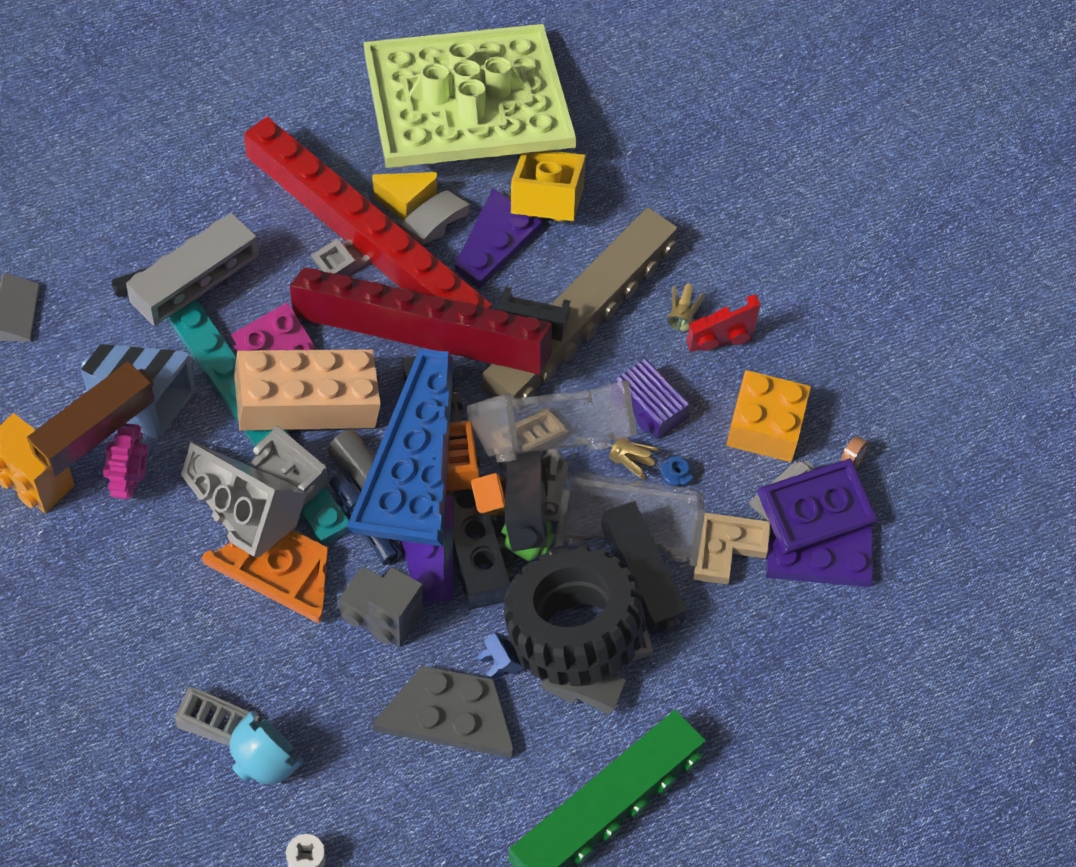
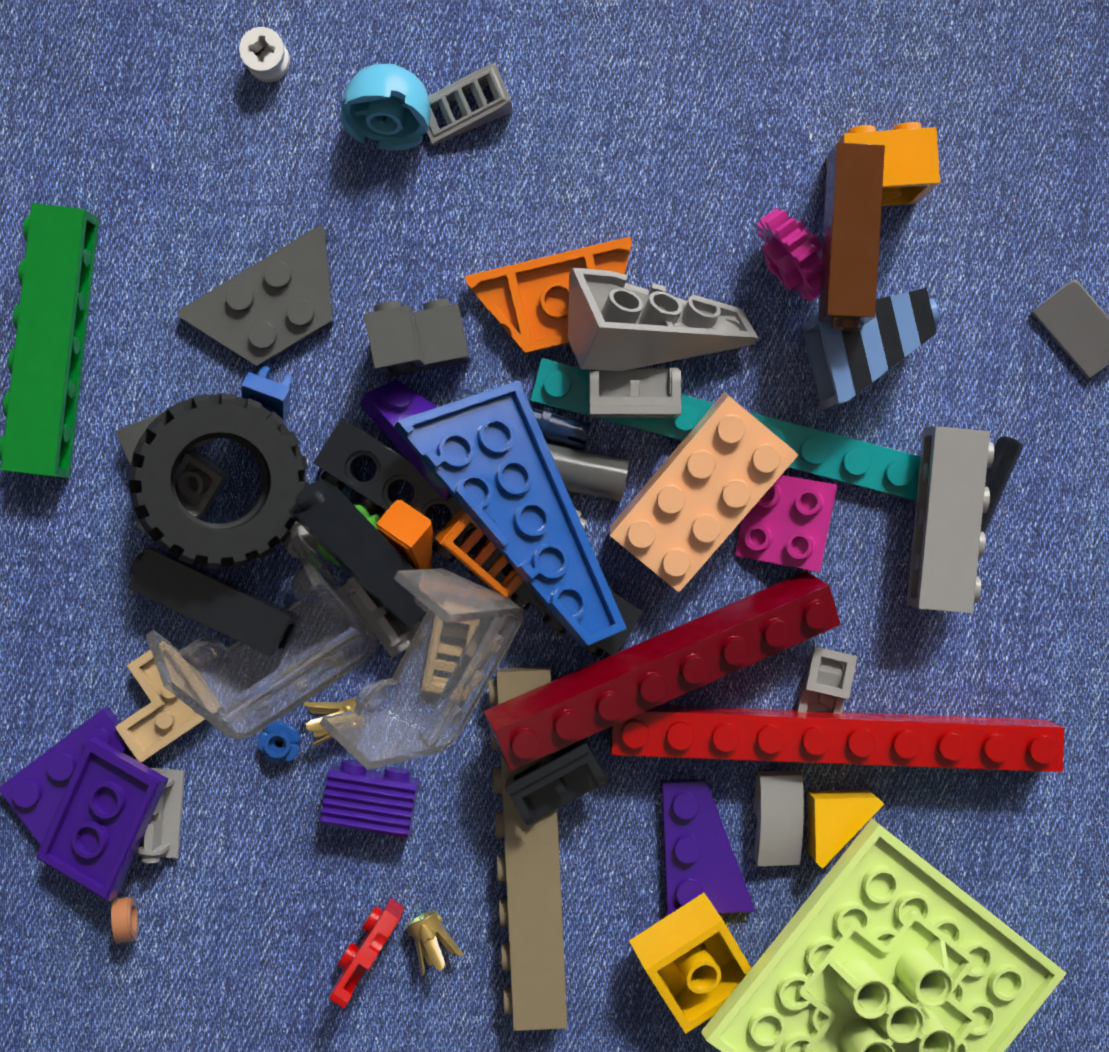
camera: 140 degrees right, 30 degrees up
(768, 416) = (238, 885): light orange brick -> none

